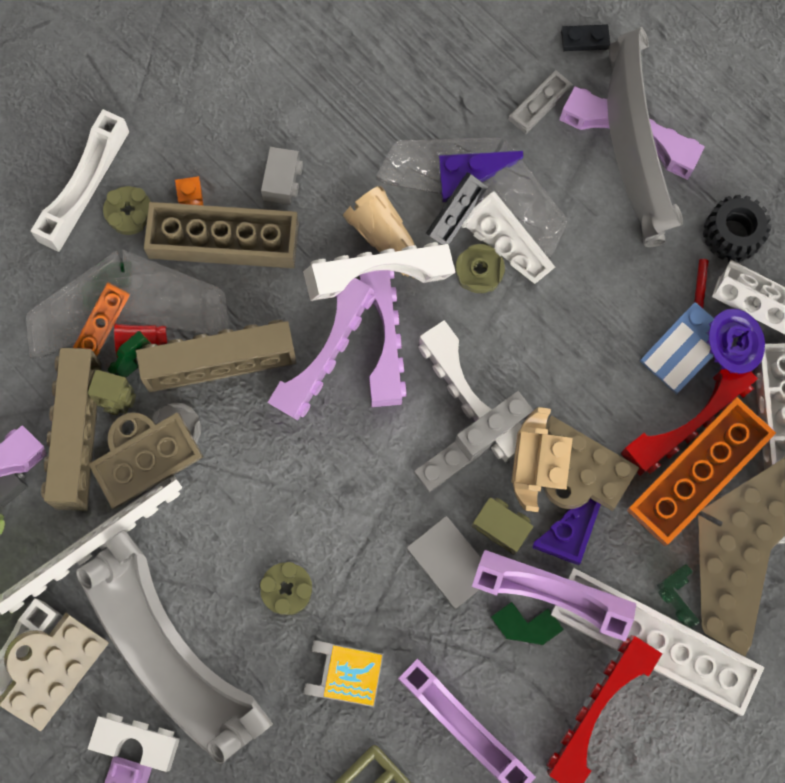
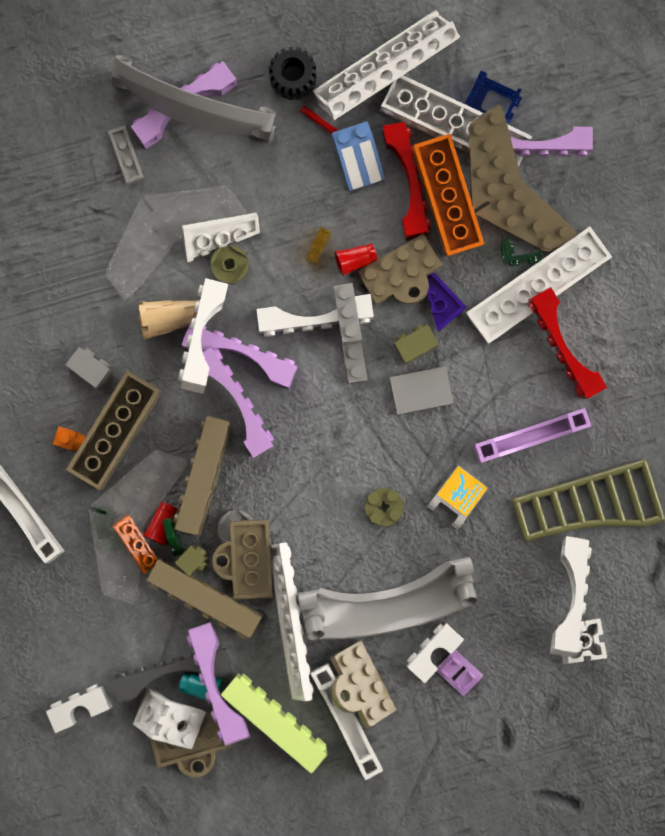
camera: 60 degrees left, 10 degrees up
(117, 201) = (62, 498): olive plate -> none
(457, 209) = (180, 258): plate -> none
(480, 165) = (154, 237): dark purple wing -> none
(515, 627) = (493, 359): dark green tile -> none
(539, 459) = (386, 297): tan plate -> none
(556, 356) = (318, 245): none -> clear yellow piece
(565, 404) = (355, 258): none -> red plant
(585, 37) = (93, 95): black plate -> none
(604, 610) = (506, 307): lavender arch -> none
(749, 346) = (381, 114): dark purple gear -> none

